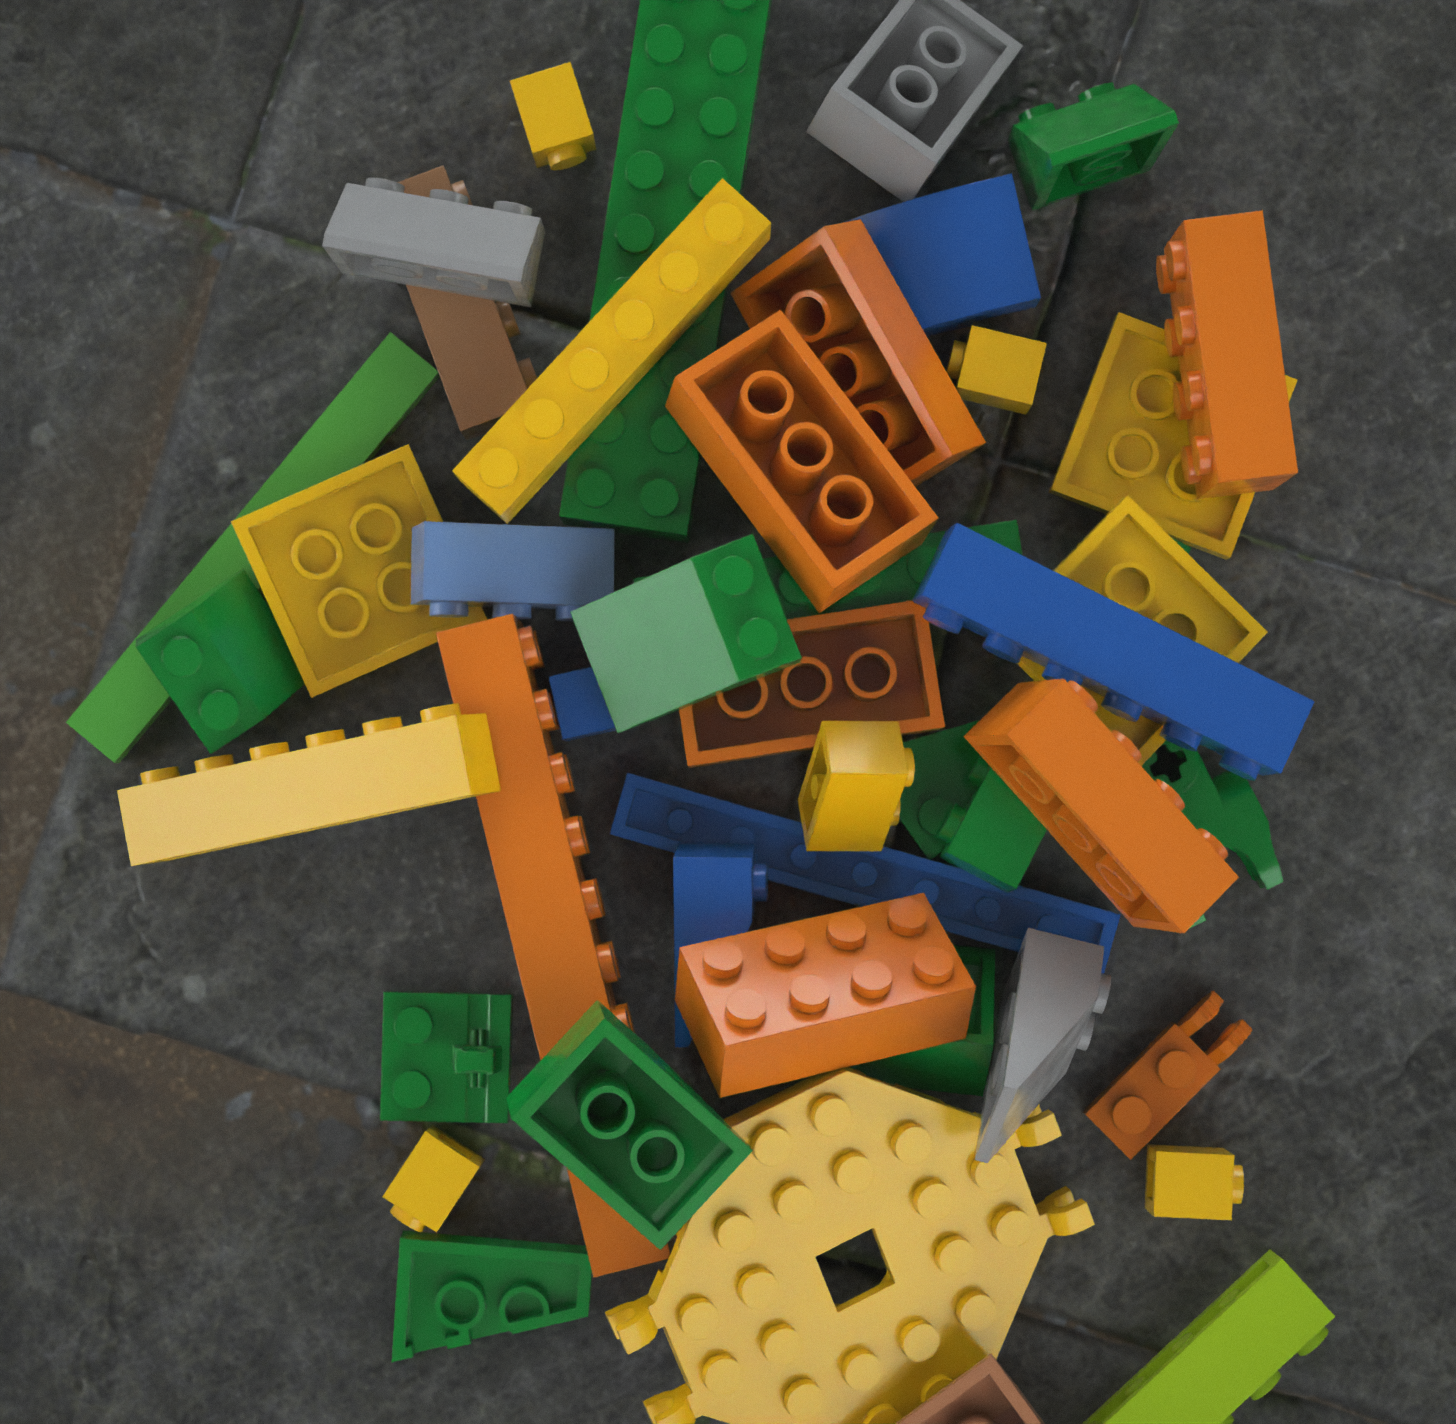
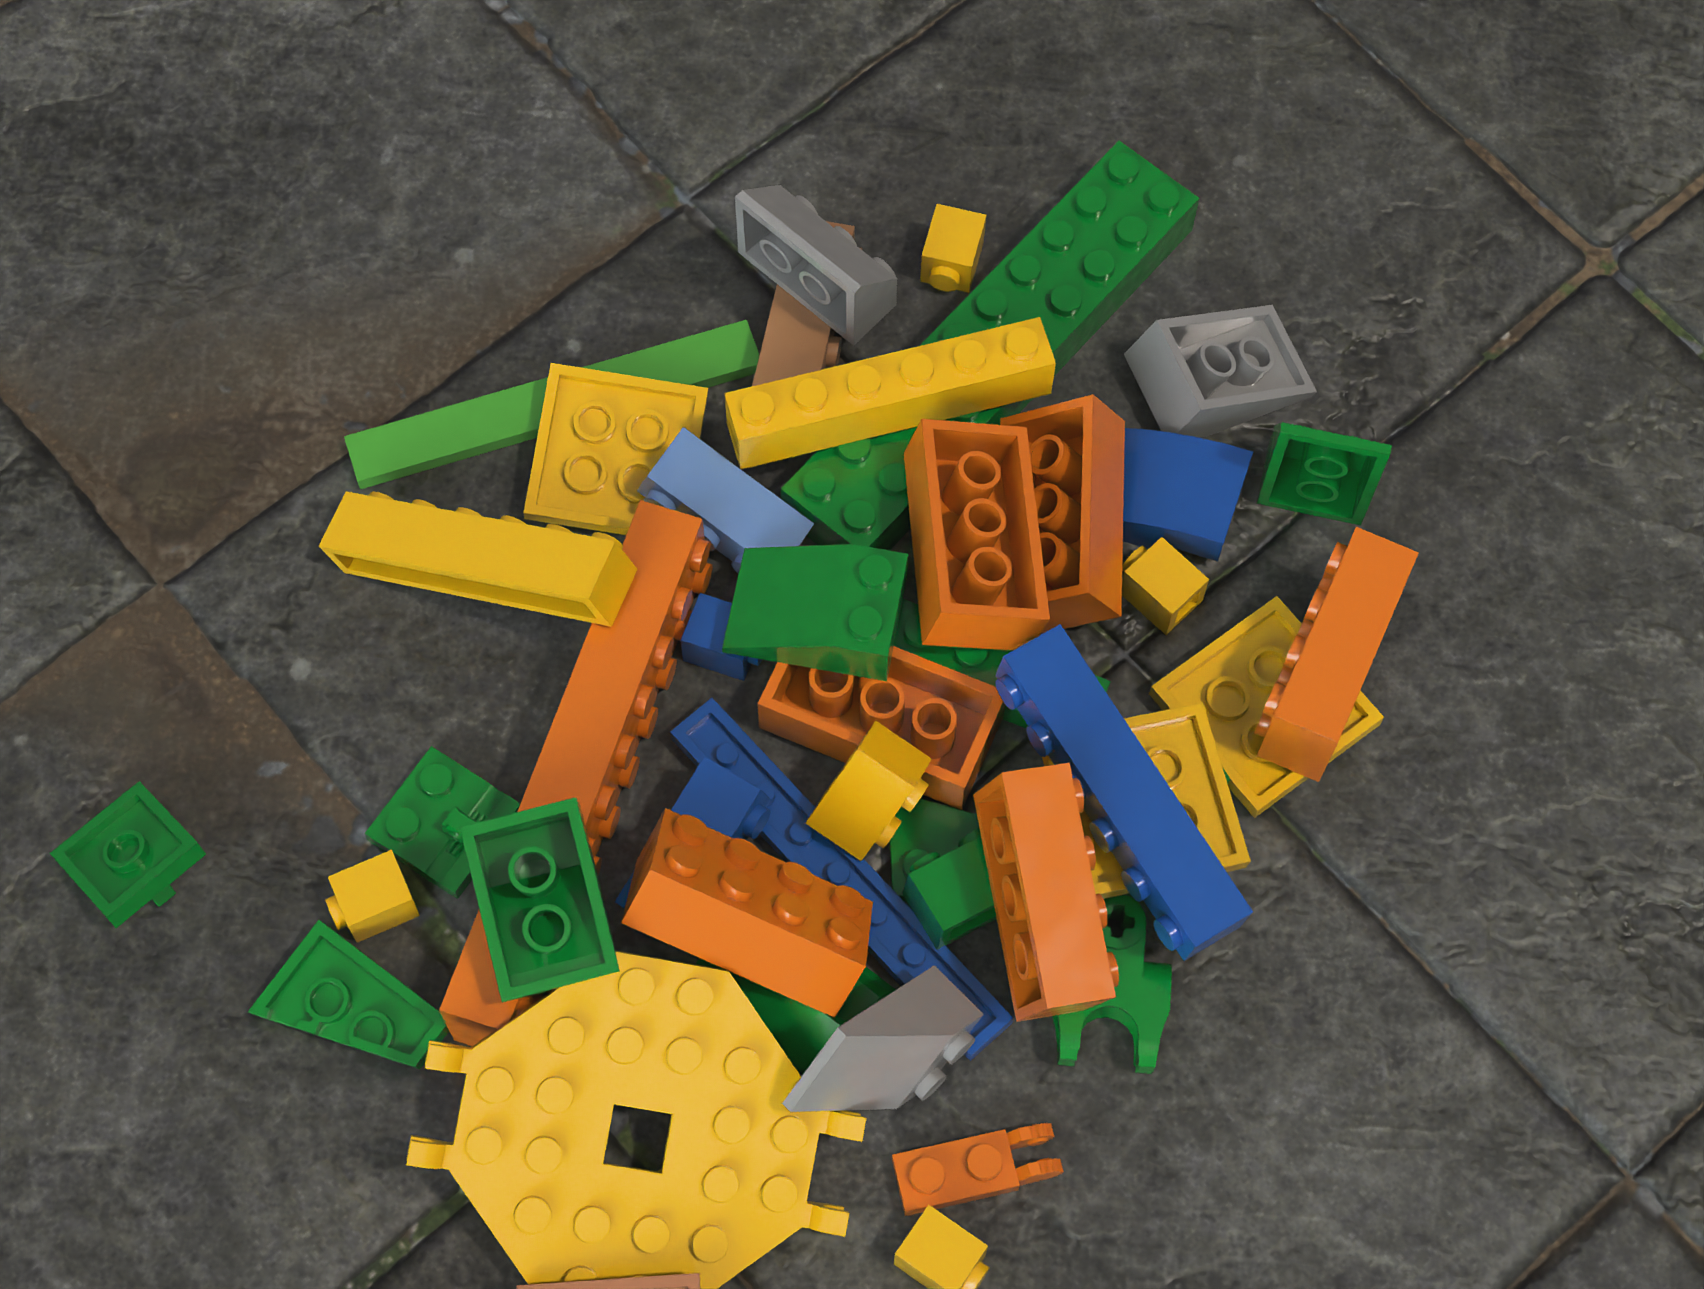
camera: 25 degrees right, 20 degrees down
(168, 1290) = (128, 855): none -> green hinge
(222, 661) = (479, 451): green slope -> none

